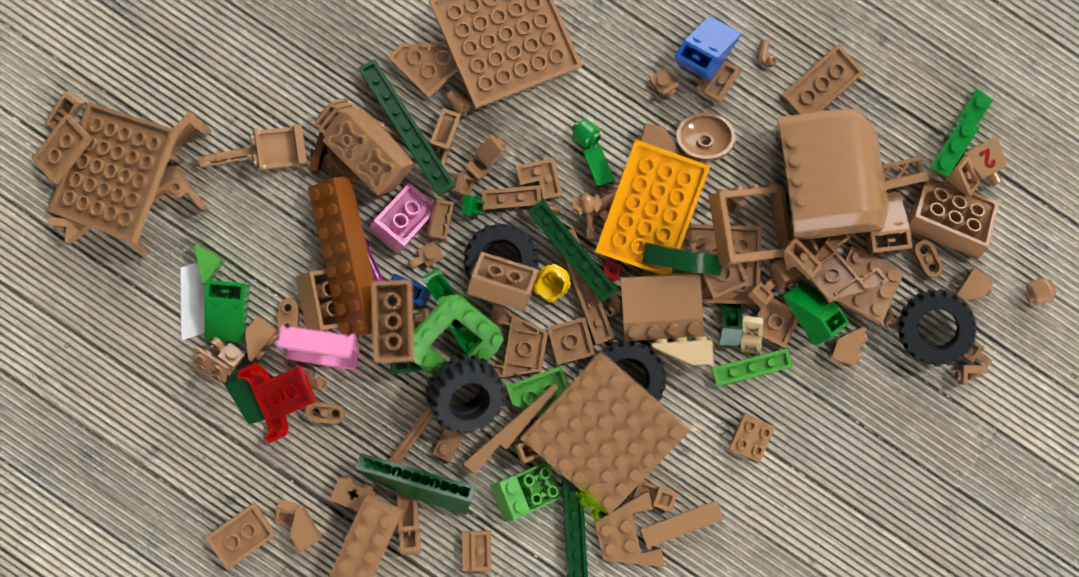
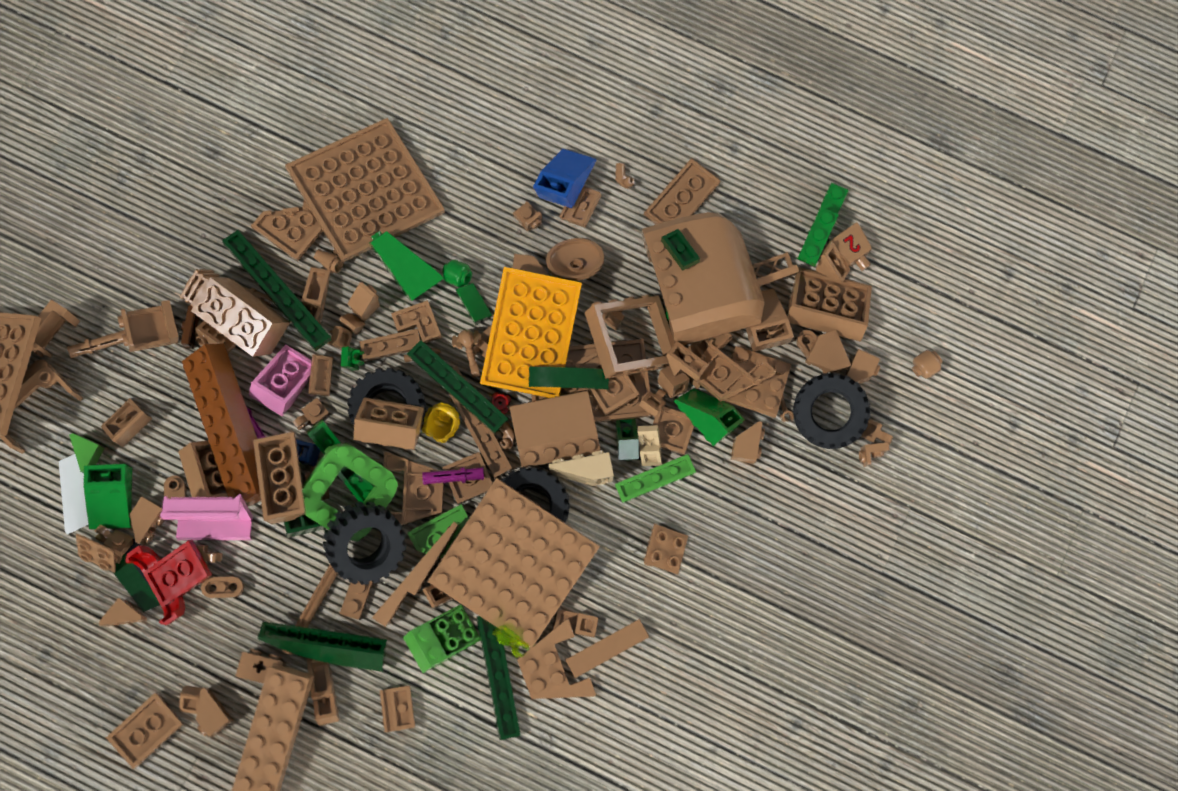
camera: 15 degrees left, 10 degrees down
(229, 424) = (121, 613): none -> medium nougat slope
(247, 239) = (126, 422): none -> medium nougat slope
(536, 122) = (407, 269): none -> green slope
(581, 339) = (453, 475): none -> magenta pin
(814, 148) = (680, 249): none -> dark green plate
(943, 268) = (828, 353): none -> medium nougat slope

